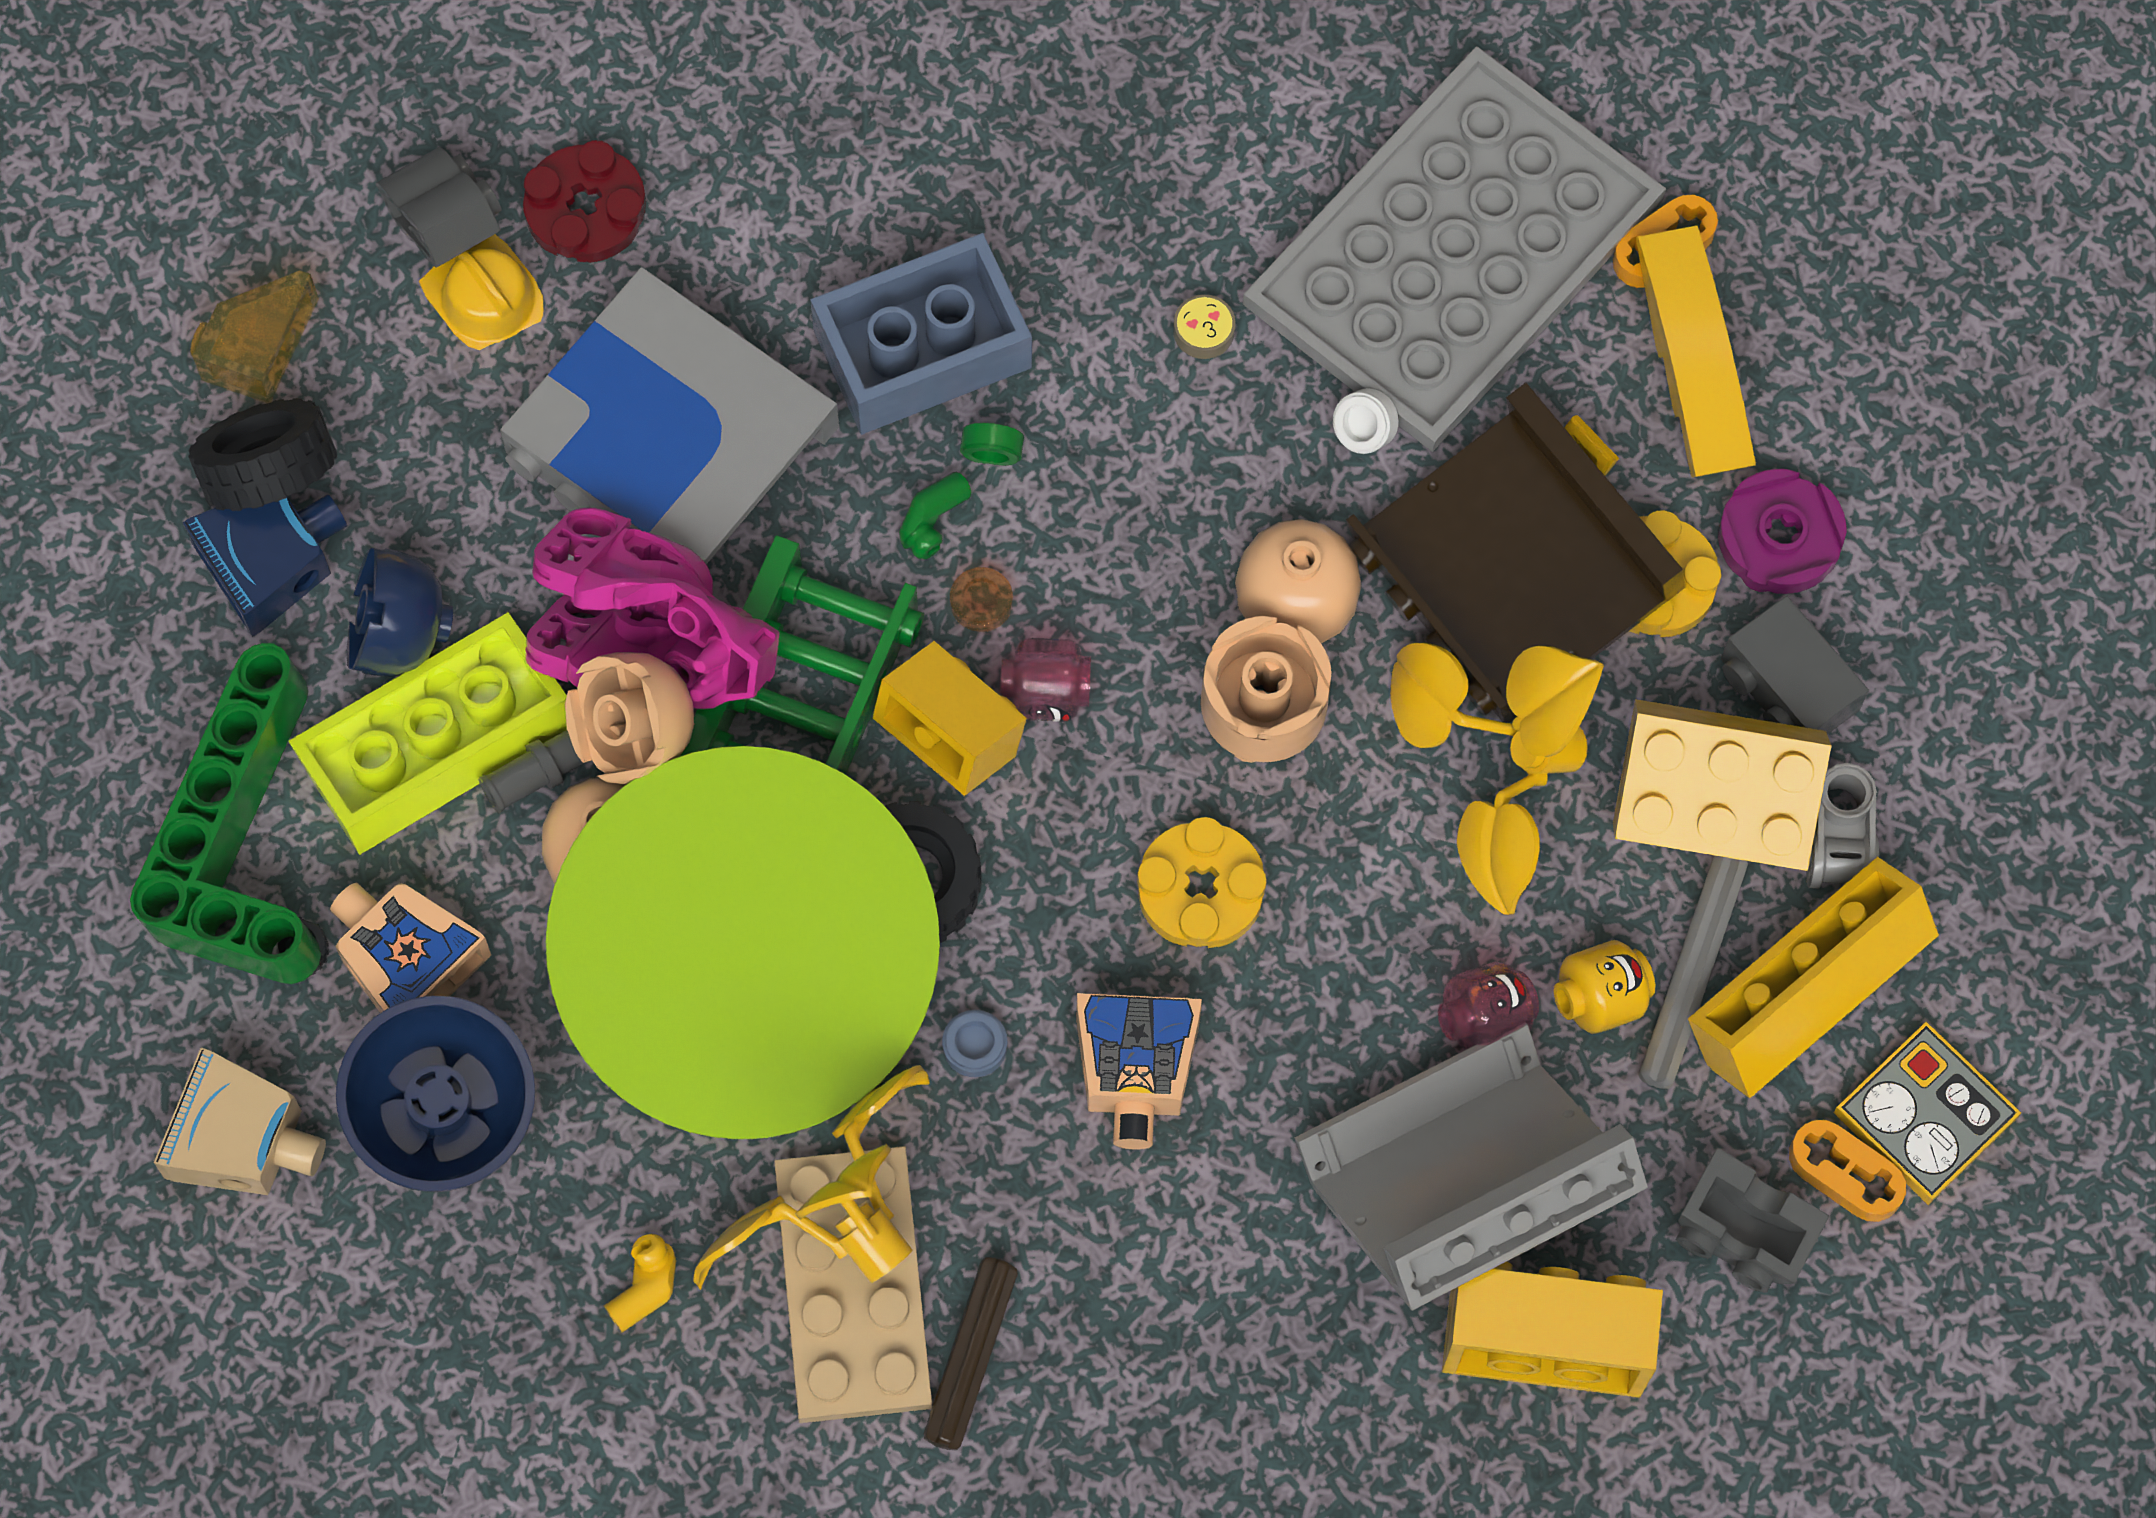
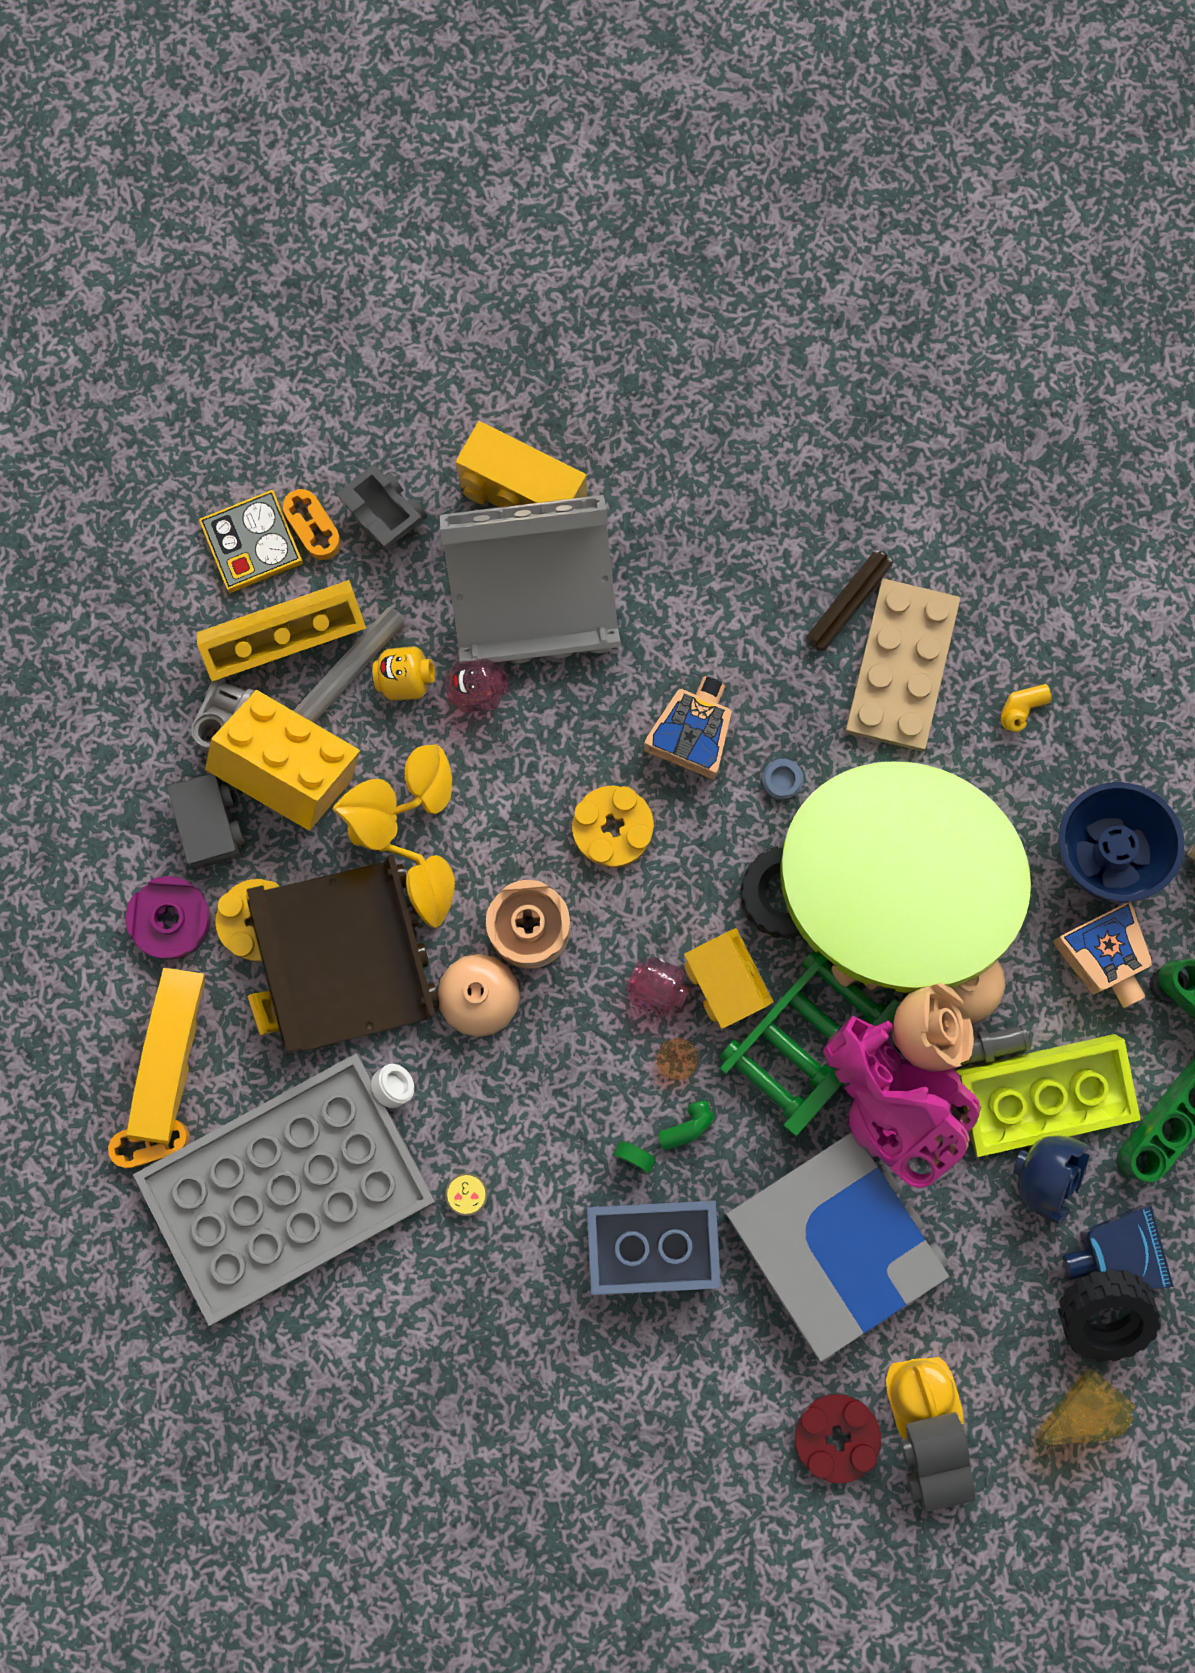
camera: 155 degrees left, 10 degrees up
(865, 1232) = (898, 668): yellow plant -> none

